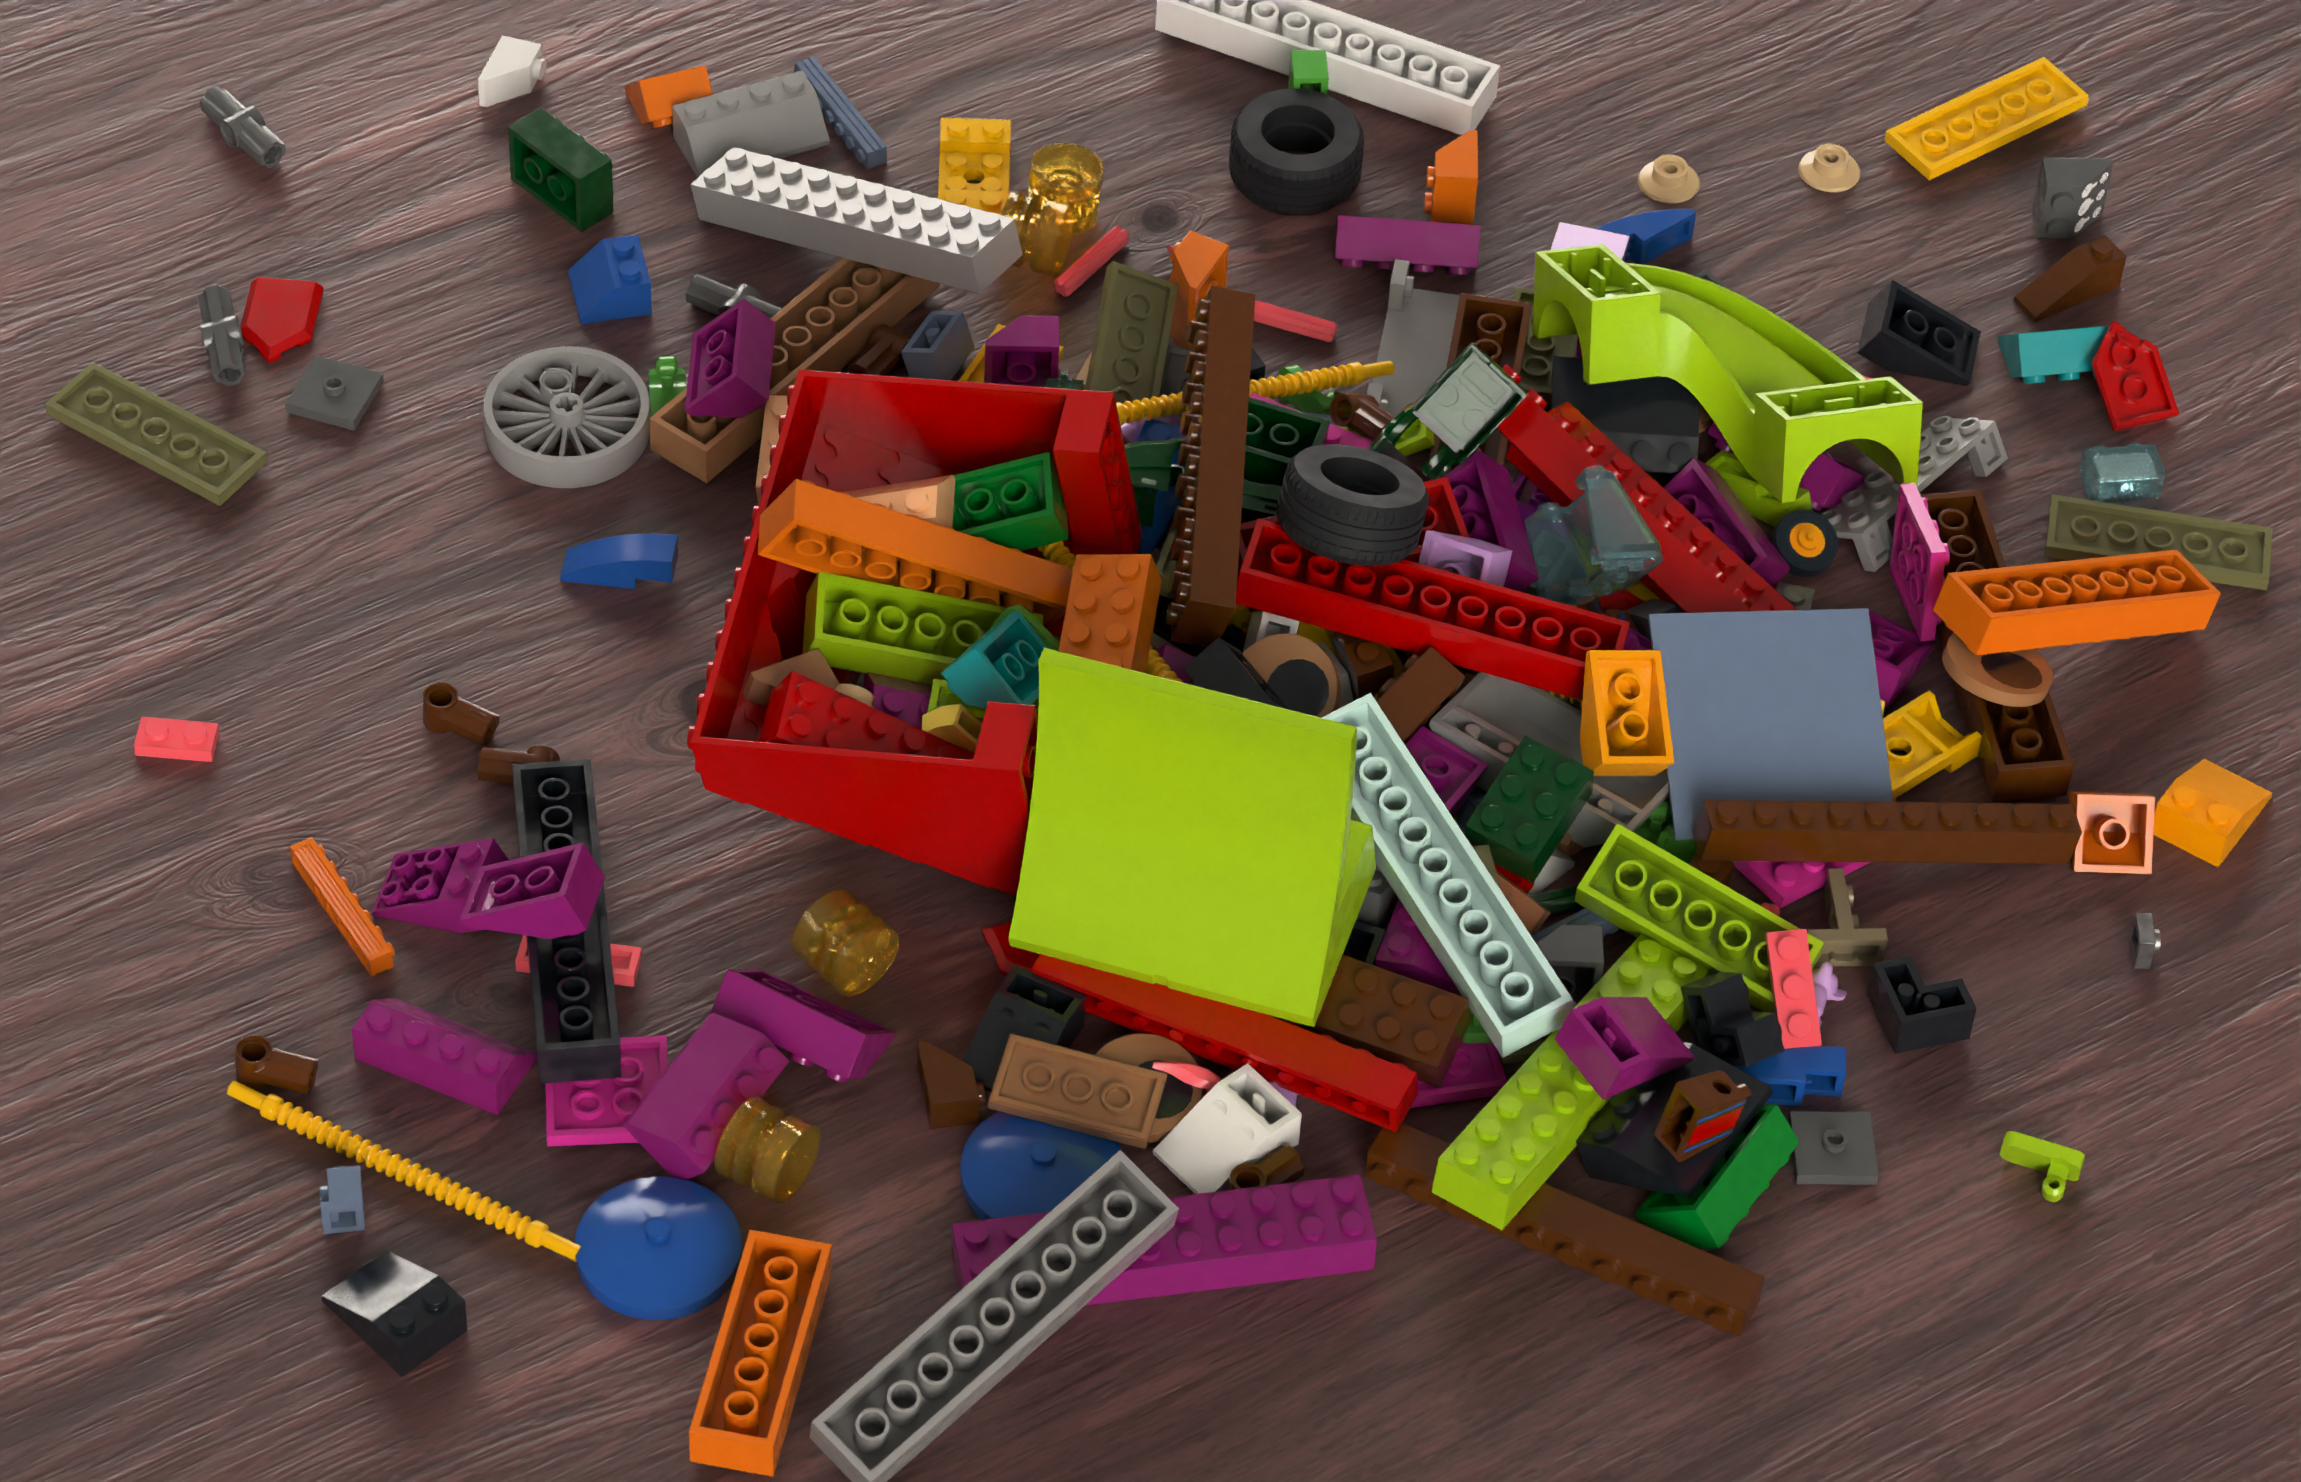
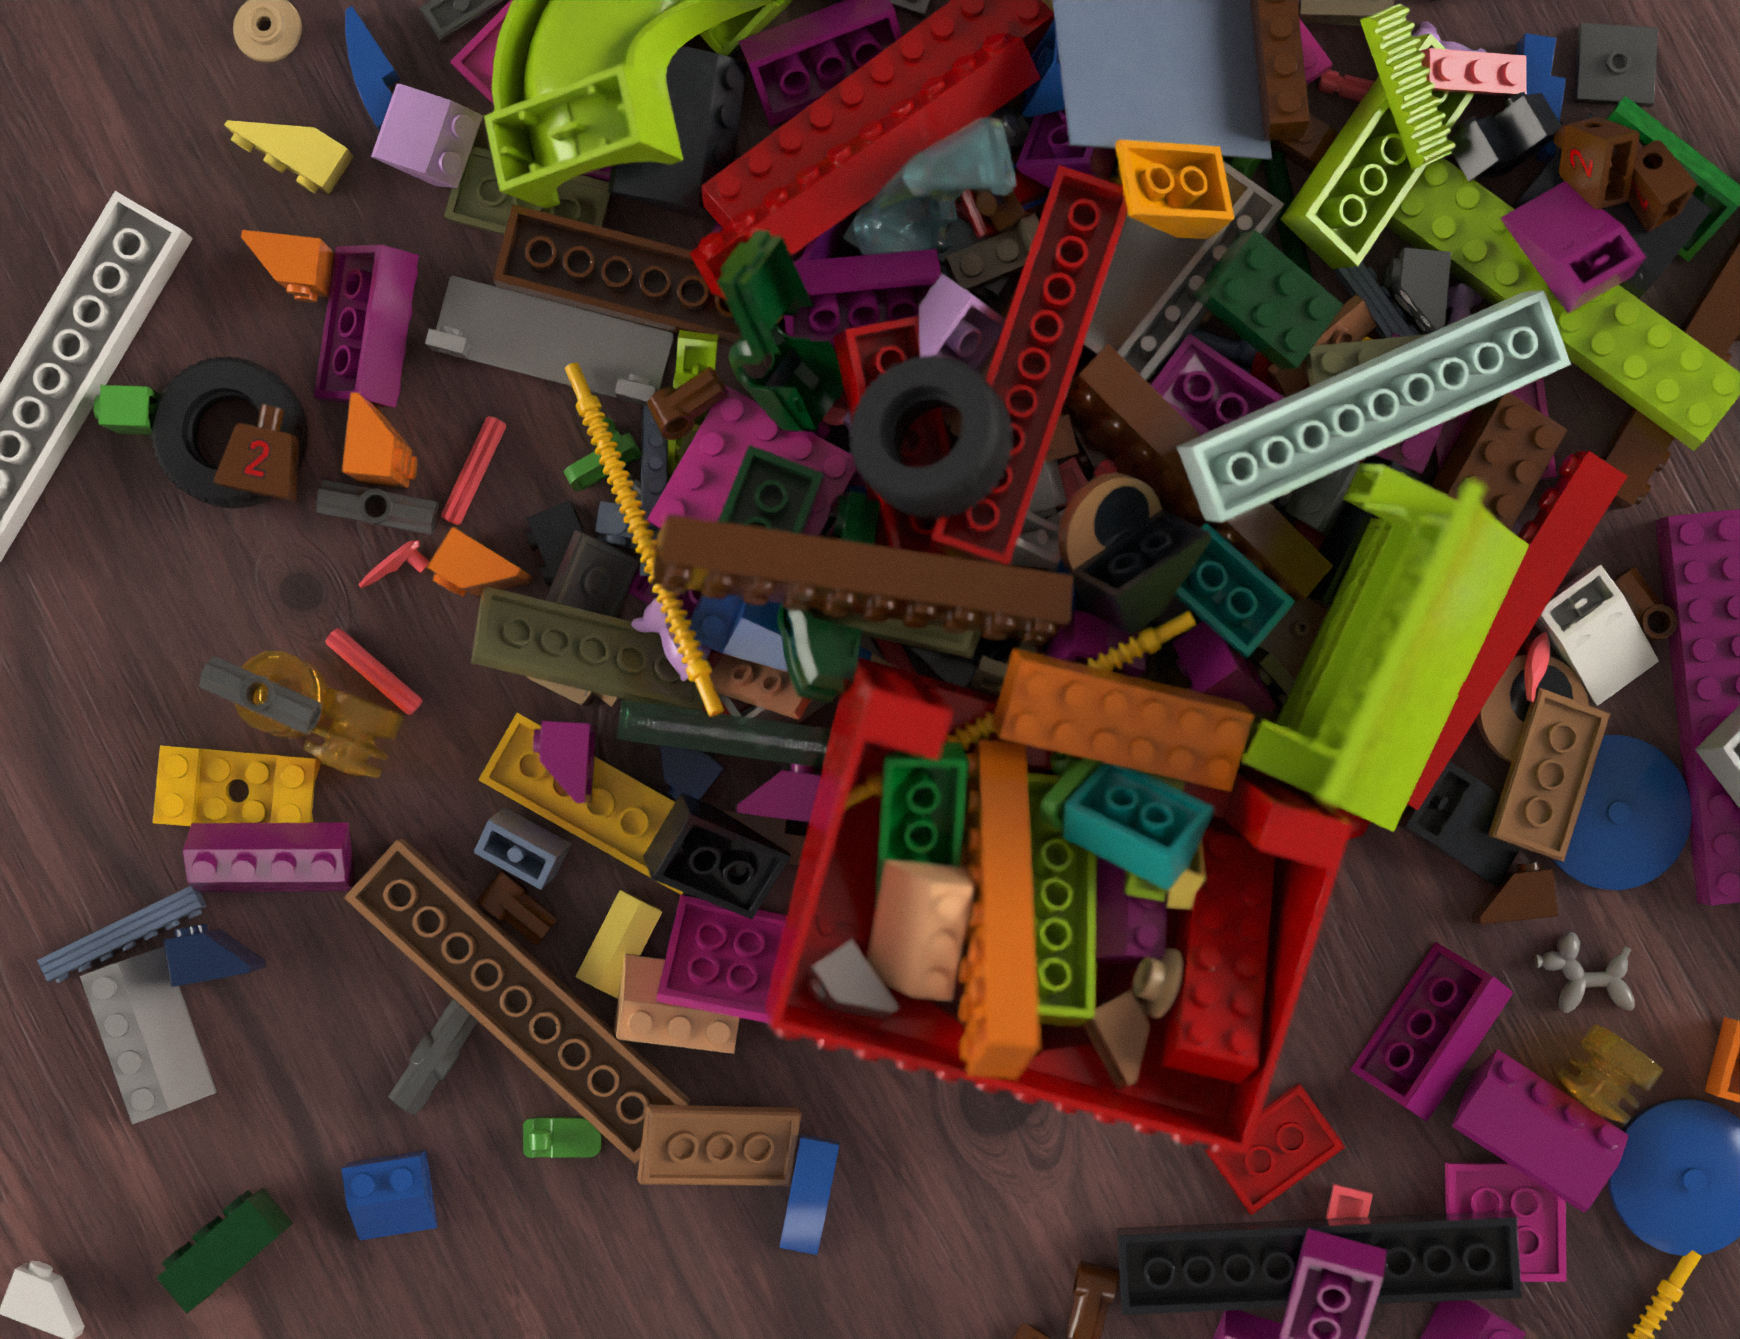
camera: 90 degrees left, 40 degrees up
(564, 415) = (667, 1225): light grey piece -> none
(656, 95) = (90, 1124): orange slope -> none
(668, 477) = (718, 1145): none -> medium nougat tile
(675, 911) = (1285, 1148): none -> red tile
(731, 363) = (575, 1076): magenta slope -> none
(825, 138) = (207, 955): none -> dark blue slope
(842, 462) = (849, 984): none -> light grey slope
(845, 942) = (1356, 987): clear yellow wheel -> none
(850, 1140) = (1573, 991): none -> light grey piece
(857, 219) = (354, 930): light grey brick -> none
(915, 157) = (269, 857): none -> magenta slope
(1063, 148) = (240, 685): none -> dark grey piece
(1243, 248) = (354, 501): none -> dark grey piece
(1275, 143) = (261, 458): none -> reddish brown torso
(1299, 228) = (375, 449): none -> orange slope
(1557, 193) = (303, 150): none -> light yellow slope
(1720, 1047) = (1598, 159): none -> reddish brown torso
(1763, 912) = (1407, 85): none -> lime gear

